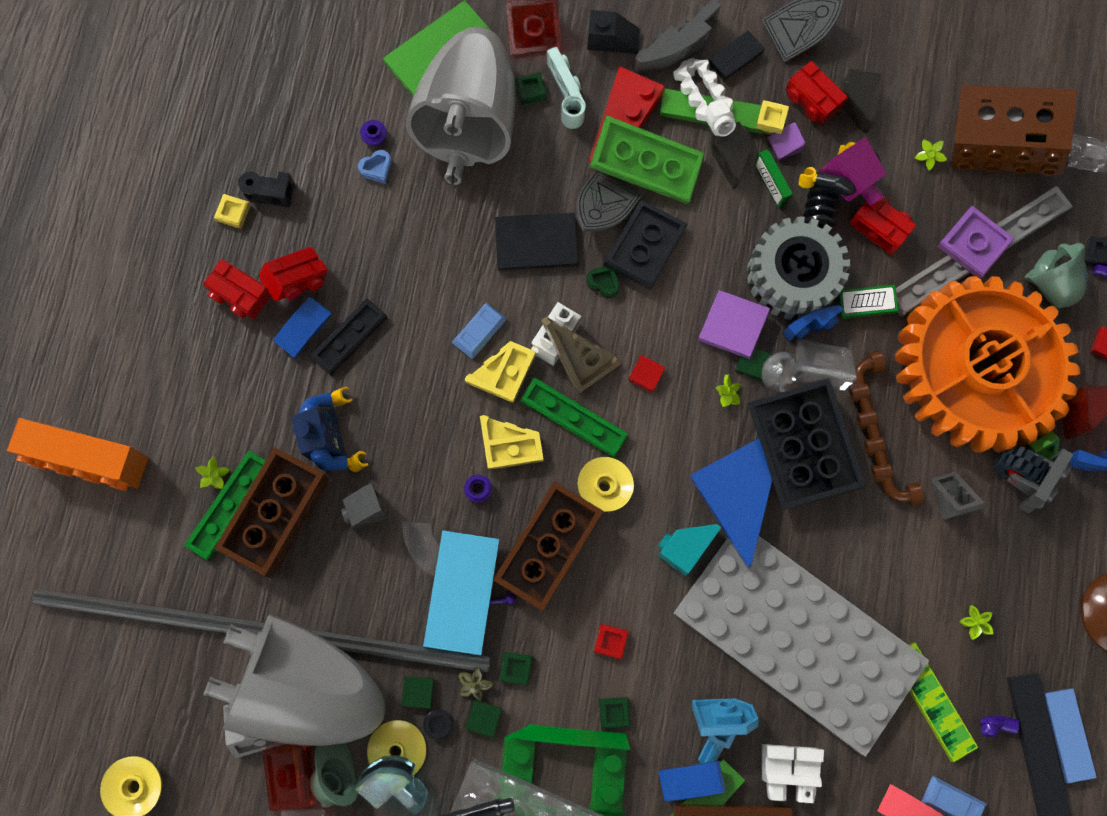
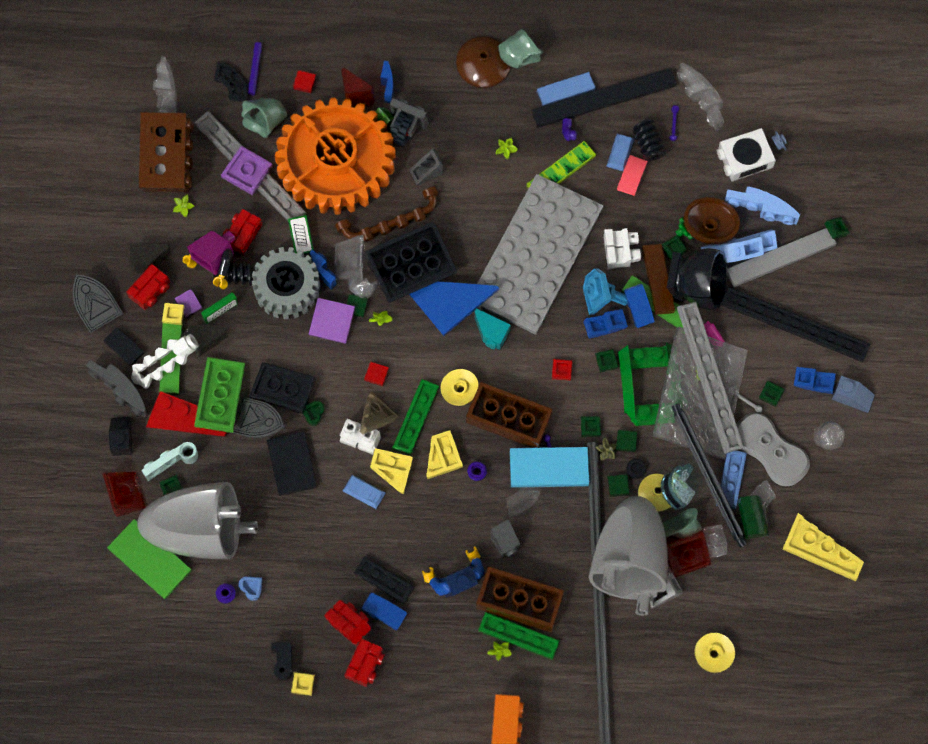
camera: 95 degrees left, 5 degrees down
(673, 723) = (605, 324): none -> blue slope

